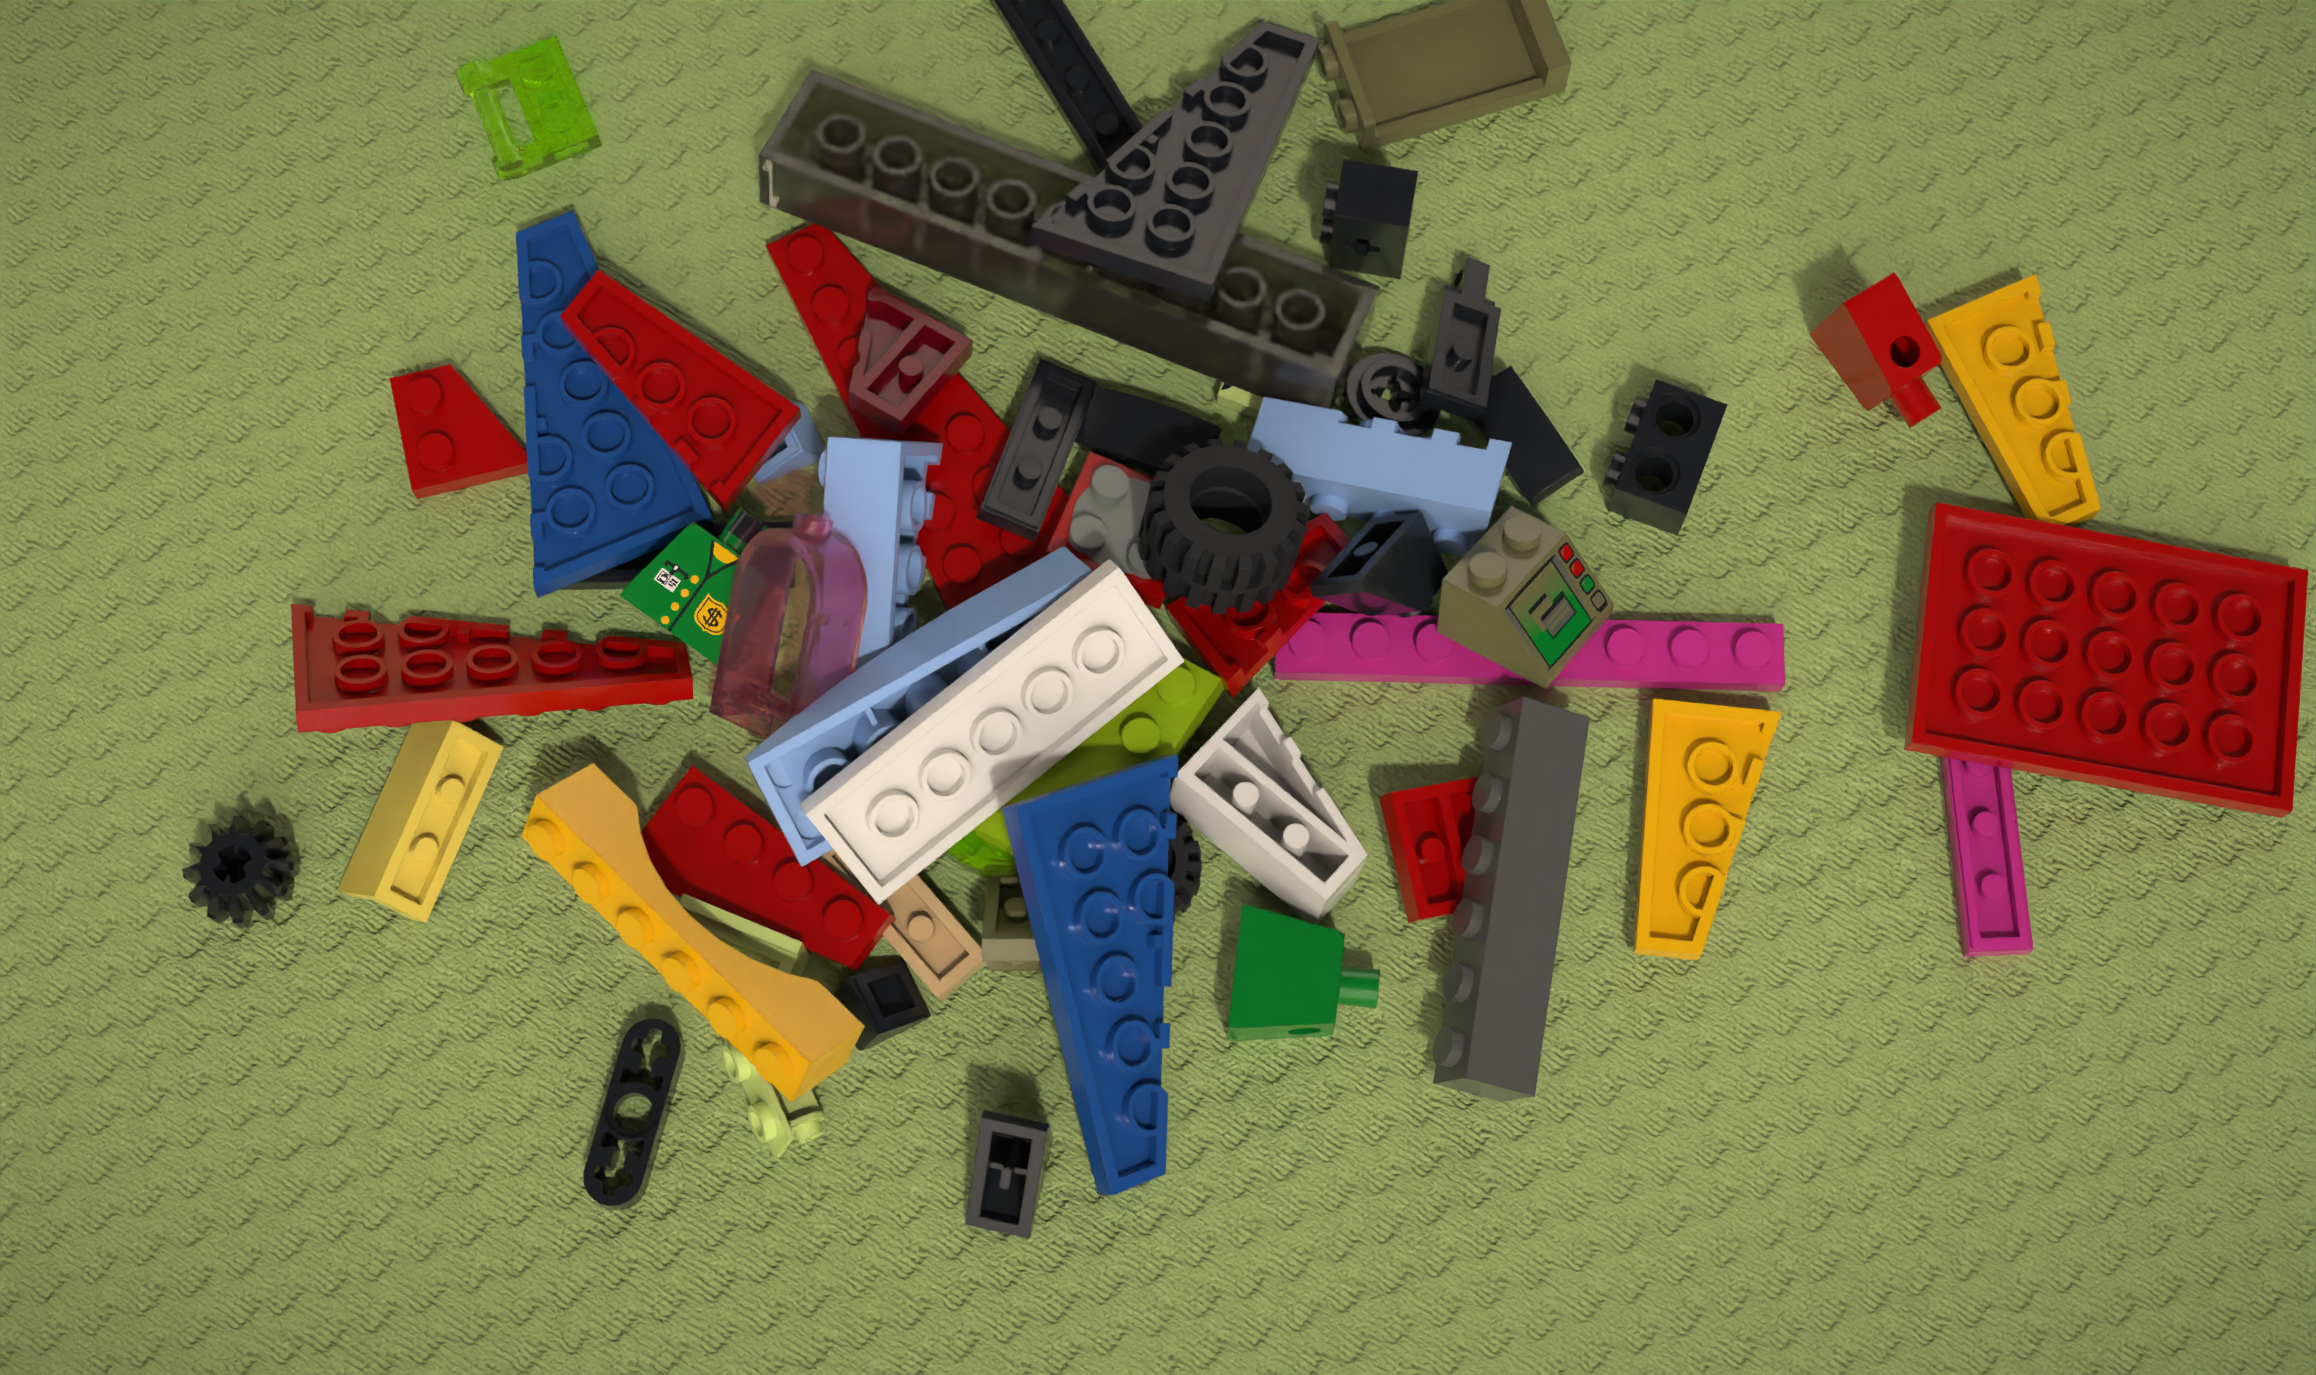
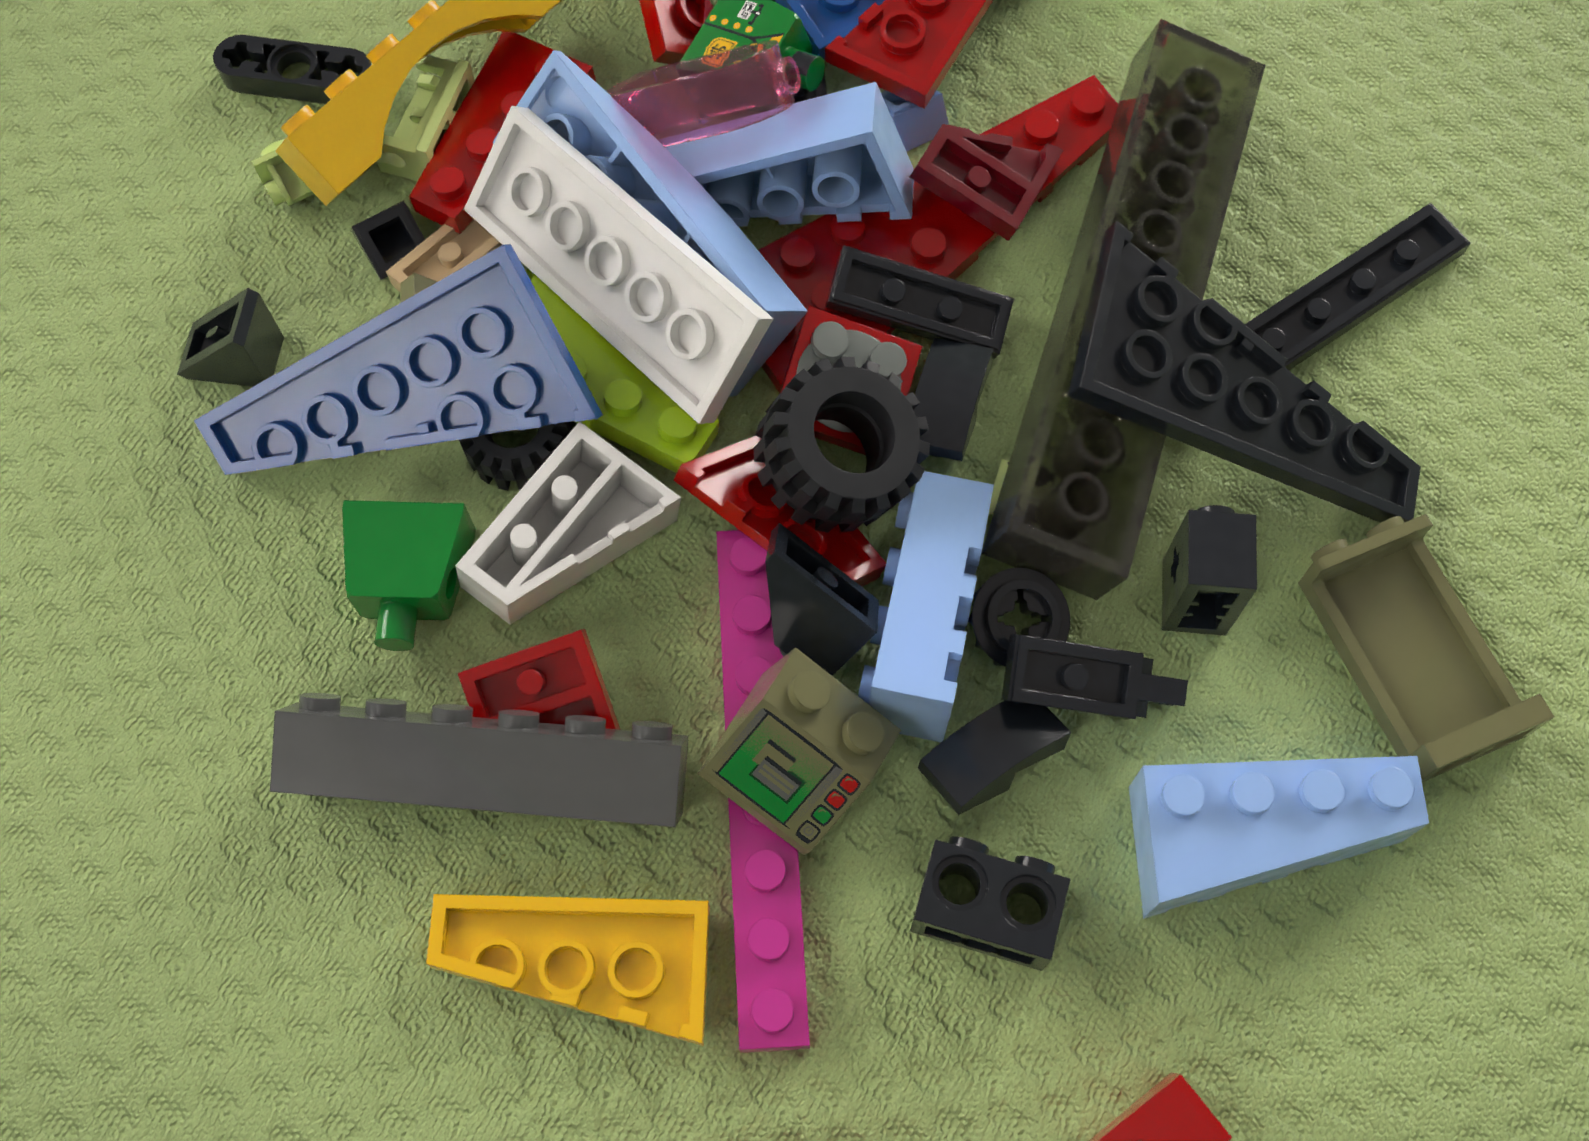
camera: 85 degrees right, 5 degrees down
(1608, 230) = (1259, 821): none -> light blue wedge

